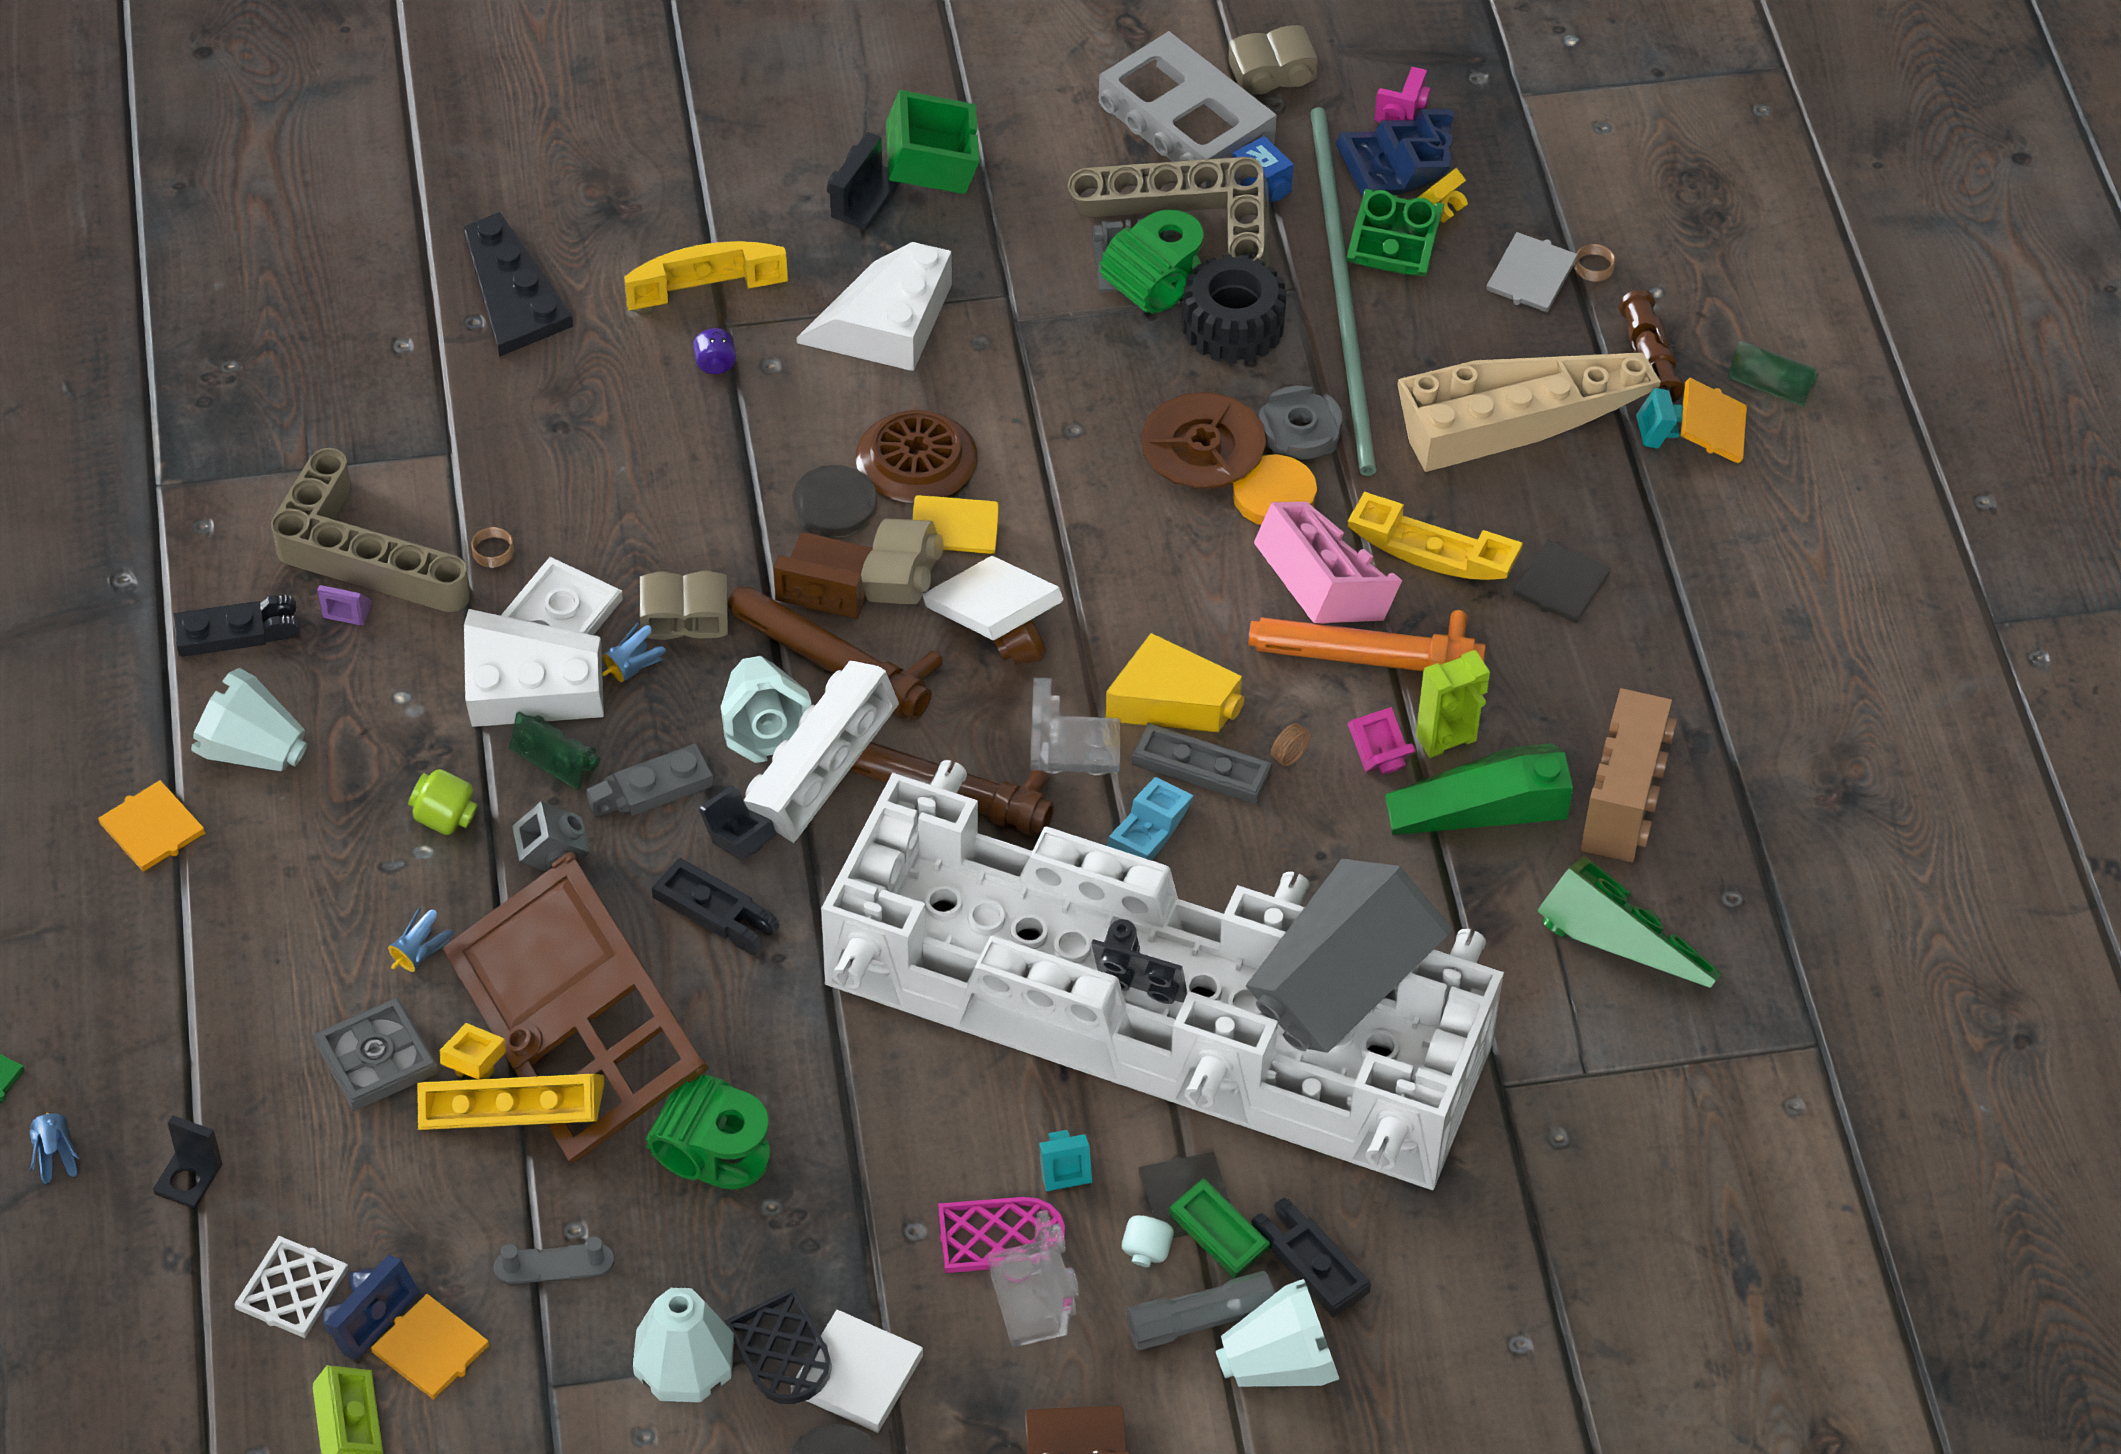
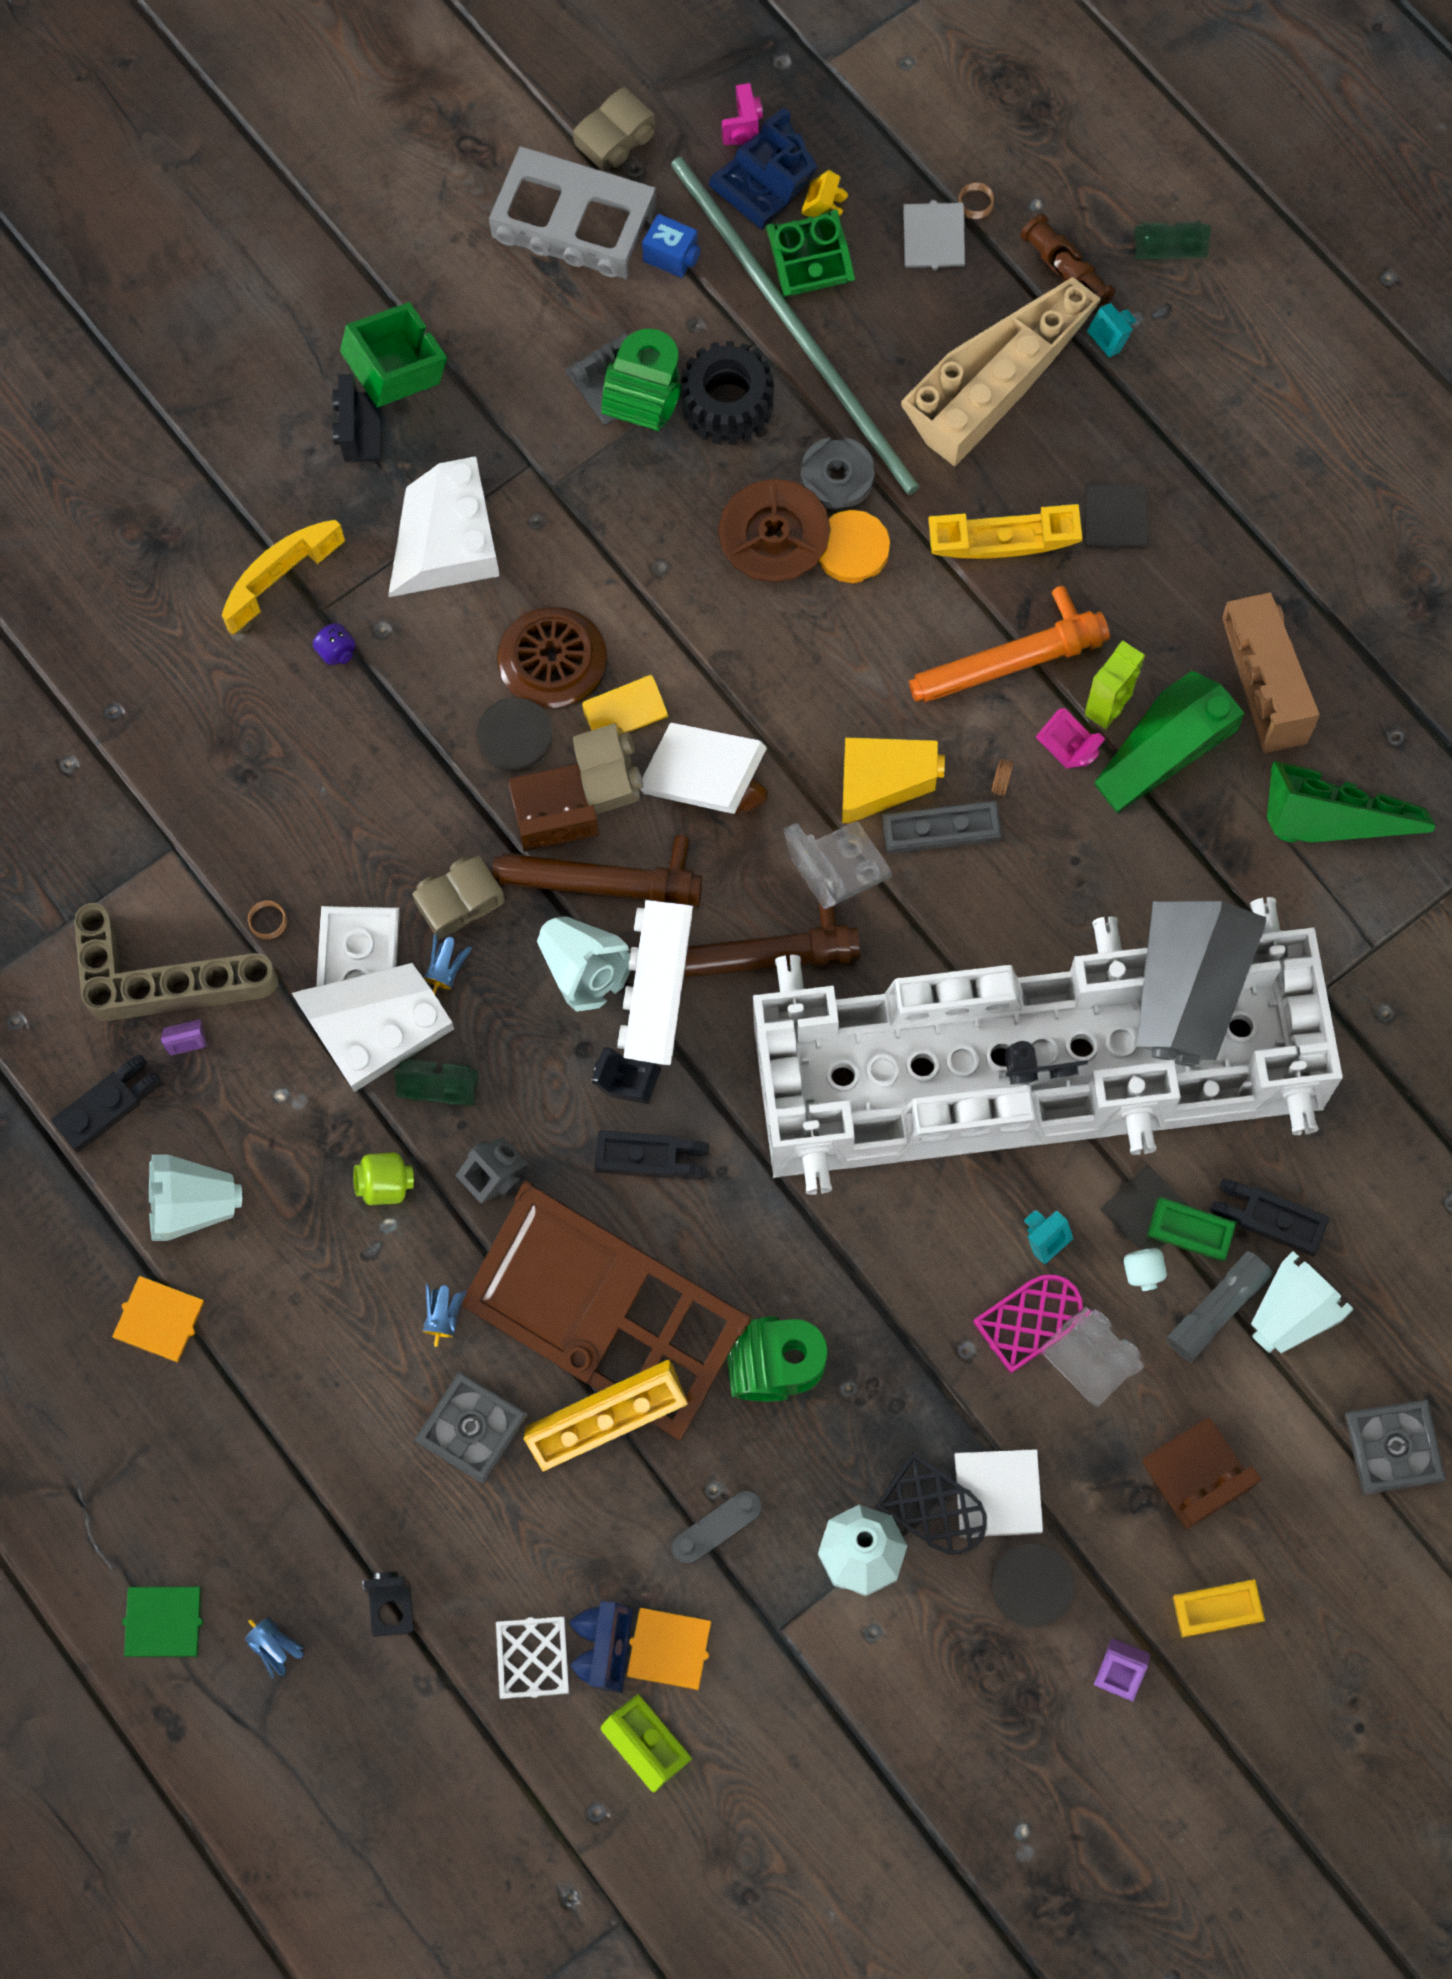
camera: 25 degrees left, 20 degrees up
(472, 1052) = (550, 1389): yellow tile -> none
(515, 291) = (132, 667): black wing -> none
(651, 783) = (532, 1069): dark grey hinge -> none
(1152, 819) = (934, 902): medium azure slope -> none
(1185, 196) = (631, 302): dark tan beam -> none
(1321, 569) = (936, 606): bright pink wedge -> none
(1713, 420) = (1153, 309): light orange piece -> none

